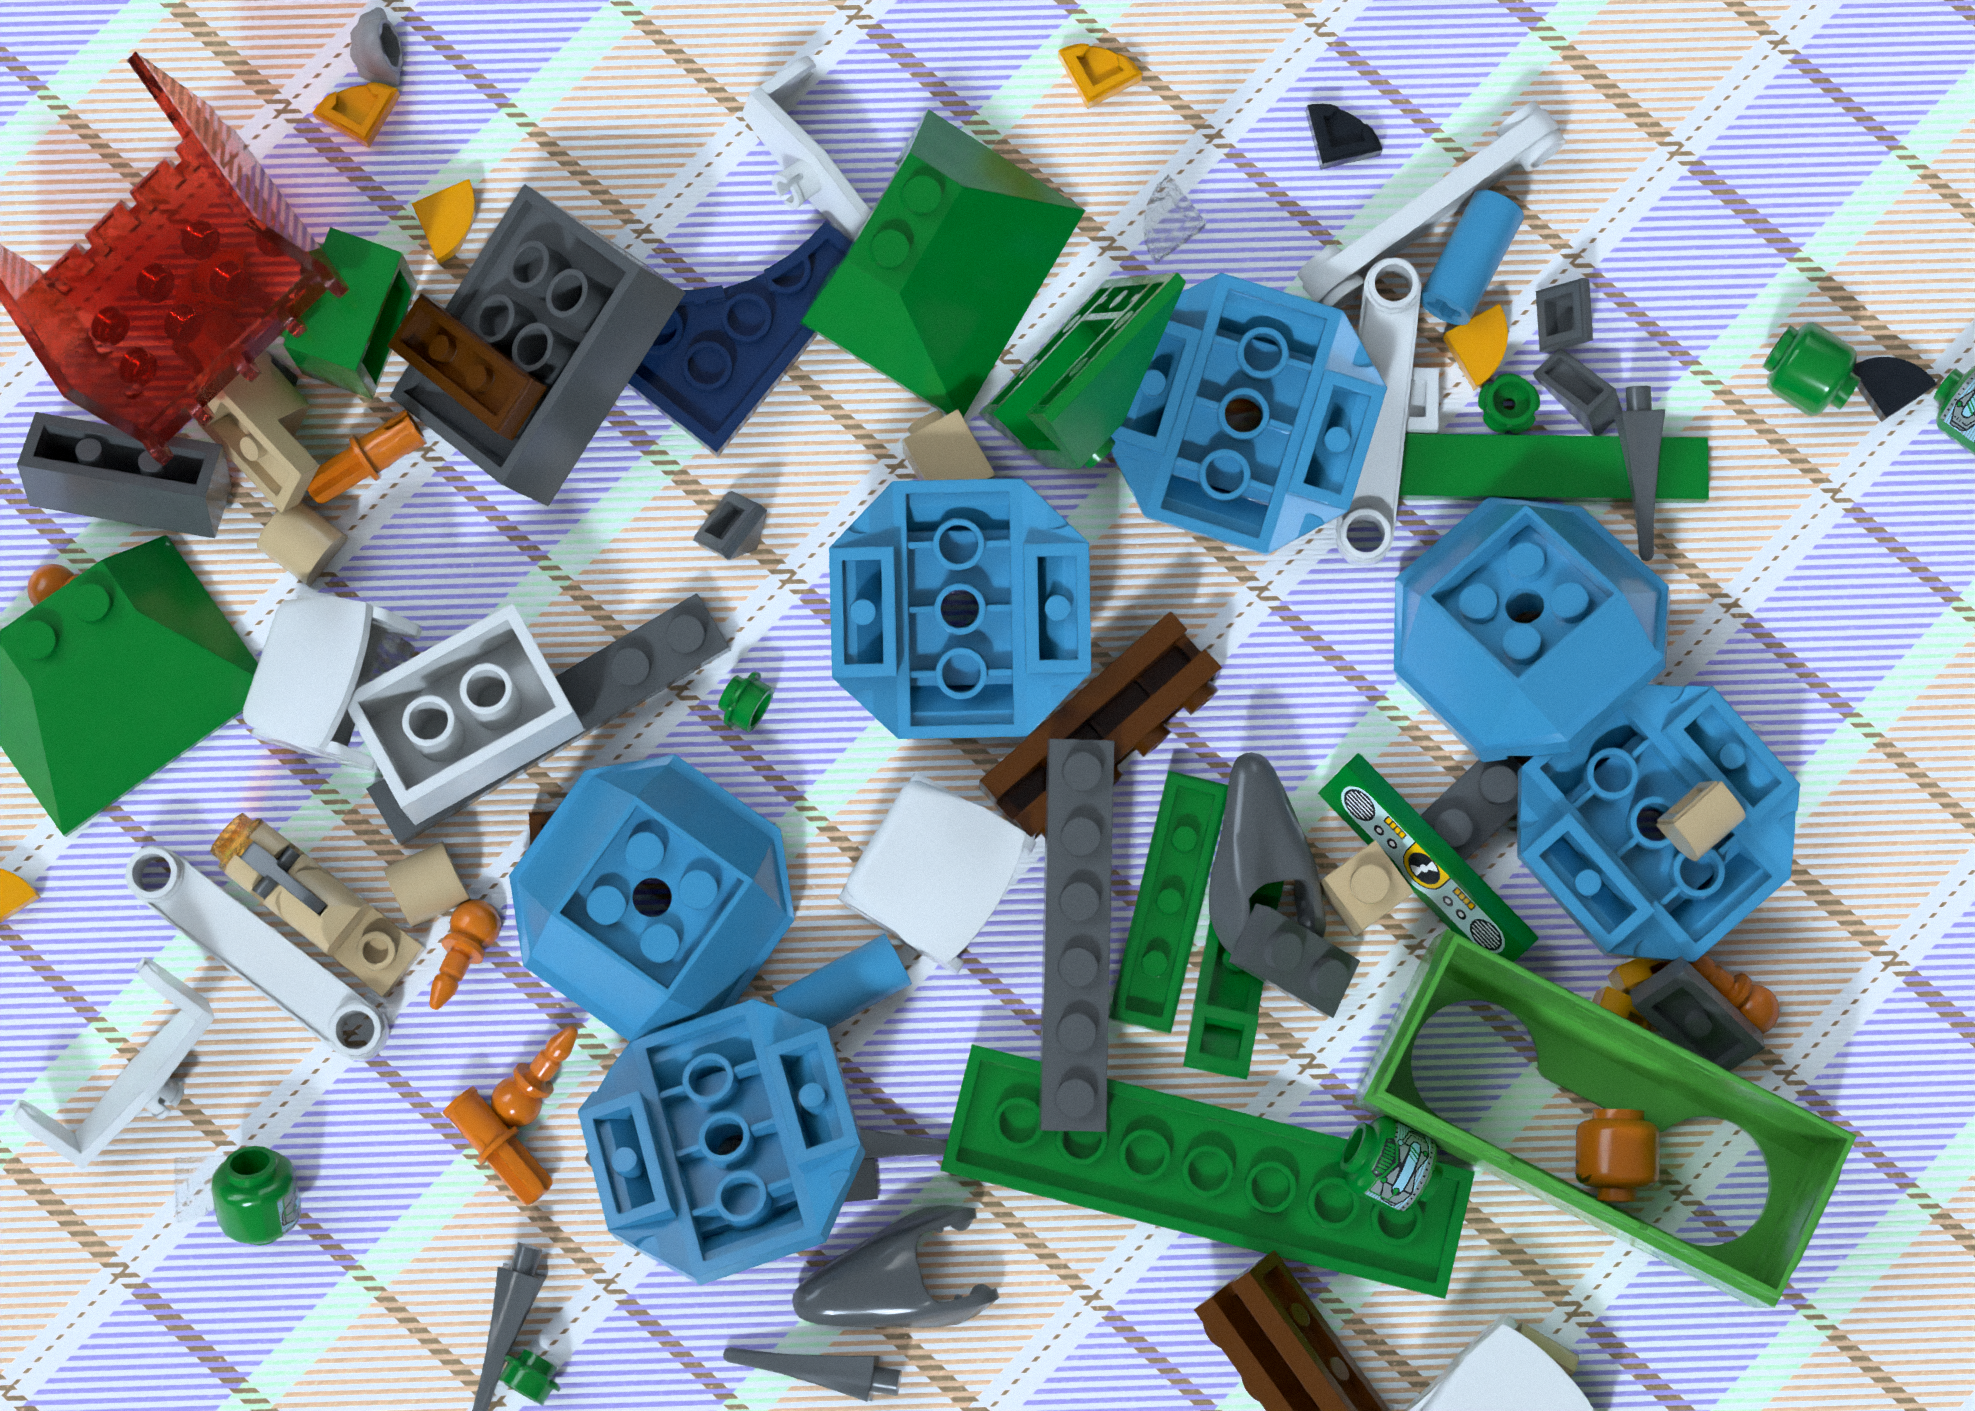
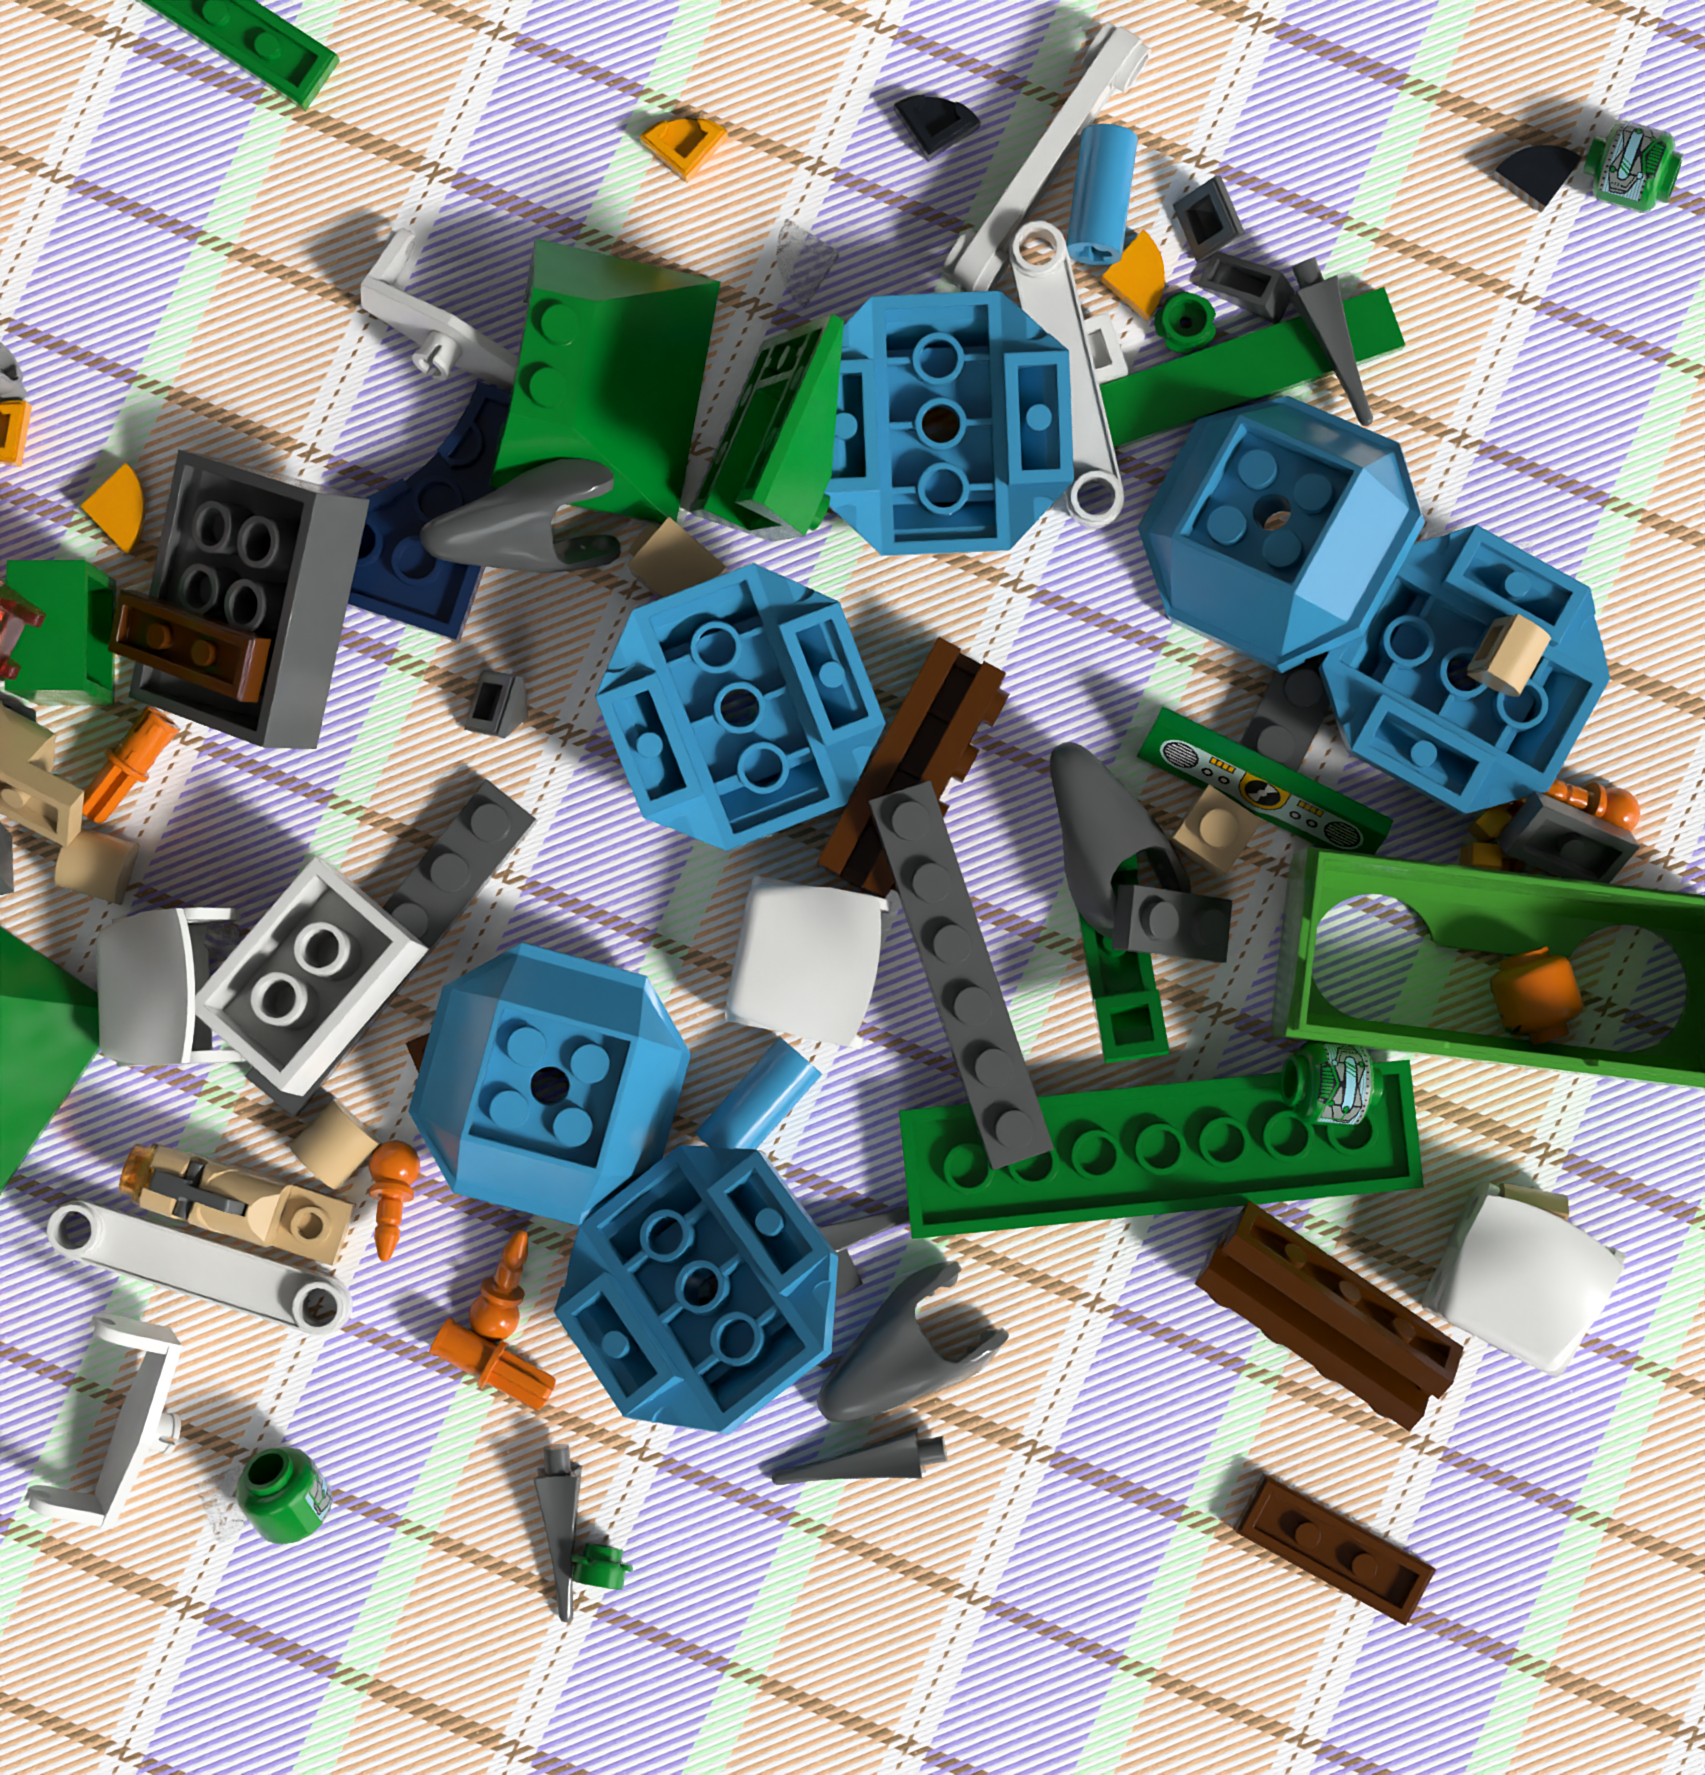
camera: 10 degrees left, 5 degrees up
(745, 701) = (570, 865): green plate -> none
(811, 365) = (514, 523): none -> dark grey animal
(1168, 902) = (1034, 909): green tile -> none
(1812, 369) = (1460, 185): green head -> none

